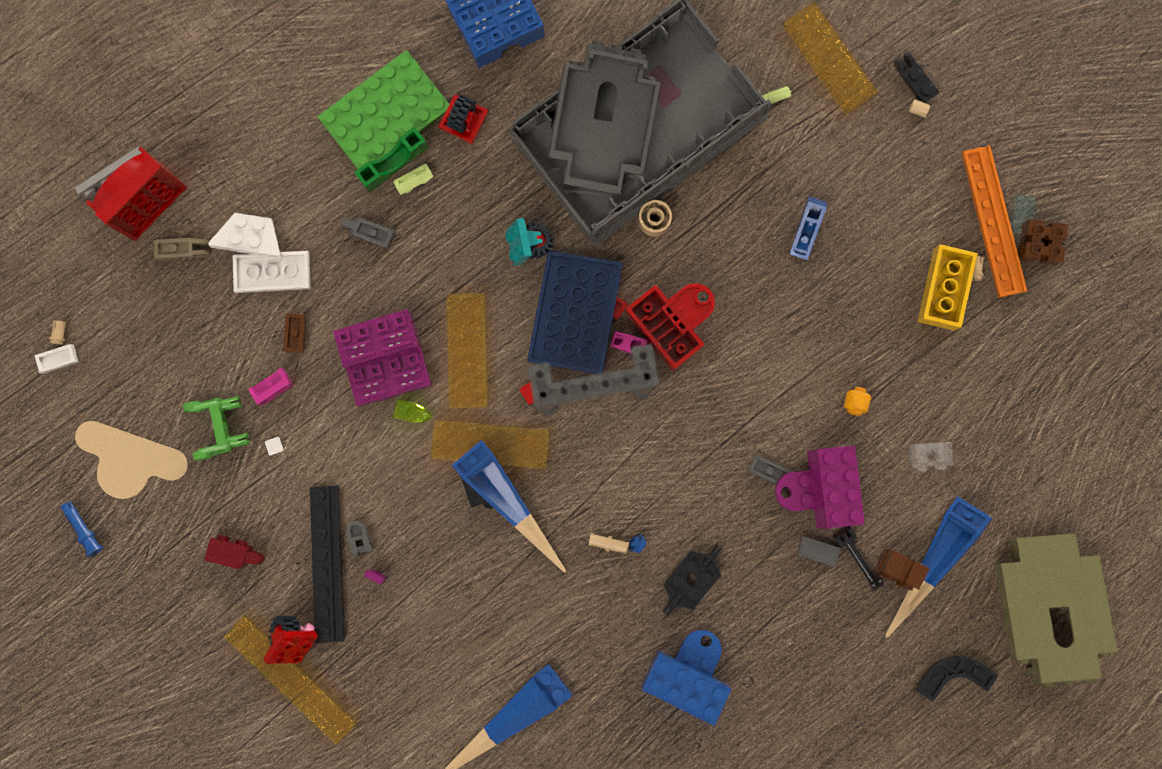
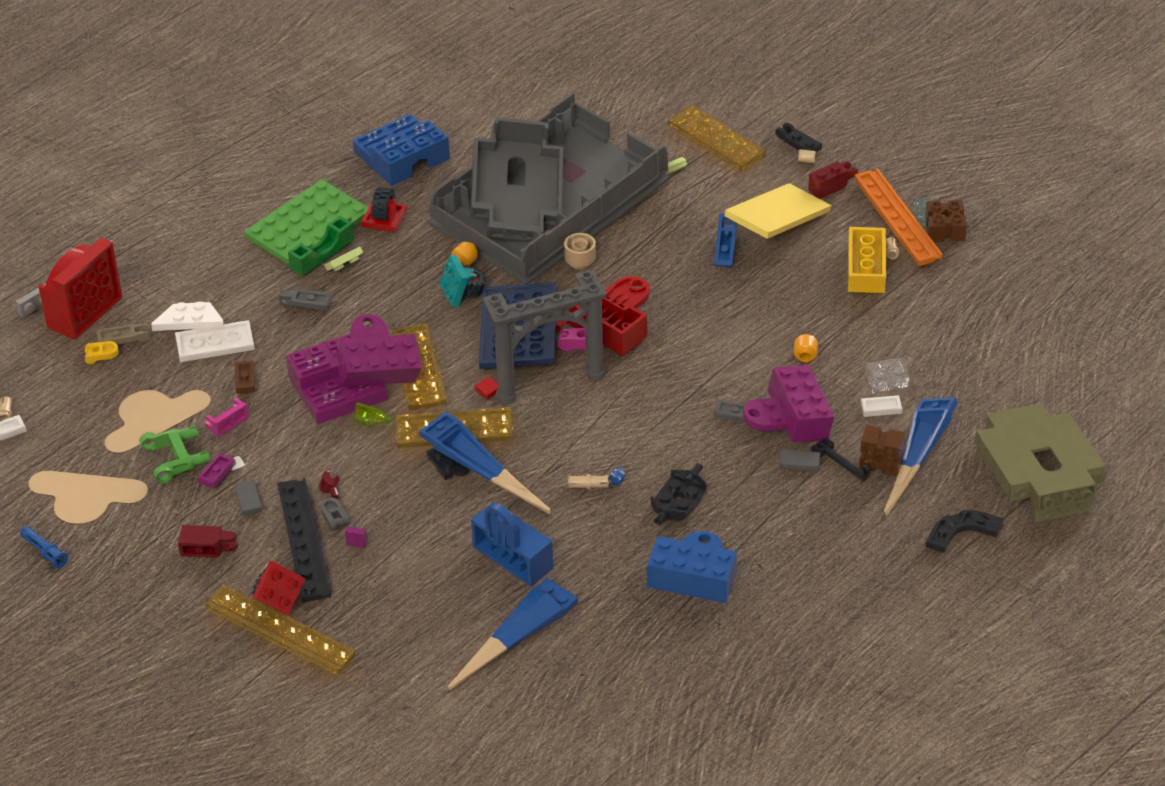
camera: 15 degrees left, 40 degrees down
(162, 269) = (100, 351): none -> yellow plate
(200, 364) = (152, 413): none -> tan sticker
(253, 459) = (216, 471): none -> magenta plate
(280, 498) = (248, 497): none -> dark grey tile
(359, 500) = (329, 484): none -> dark red piece
(421, 357) = (375, 356): none -> magenta brick
(519, 625) = (512, 543): none -> blue brick
(536, 197) = (466, 253): none -> light orange head
(870, 200) = (777, 210): none -> light yellow tile
(914, 491) = (881, 406): none -> white tile
(937, 152) = (831, 178): none -> dark red hinge

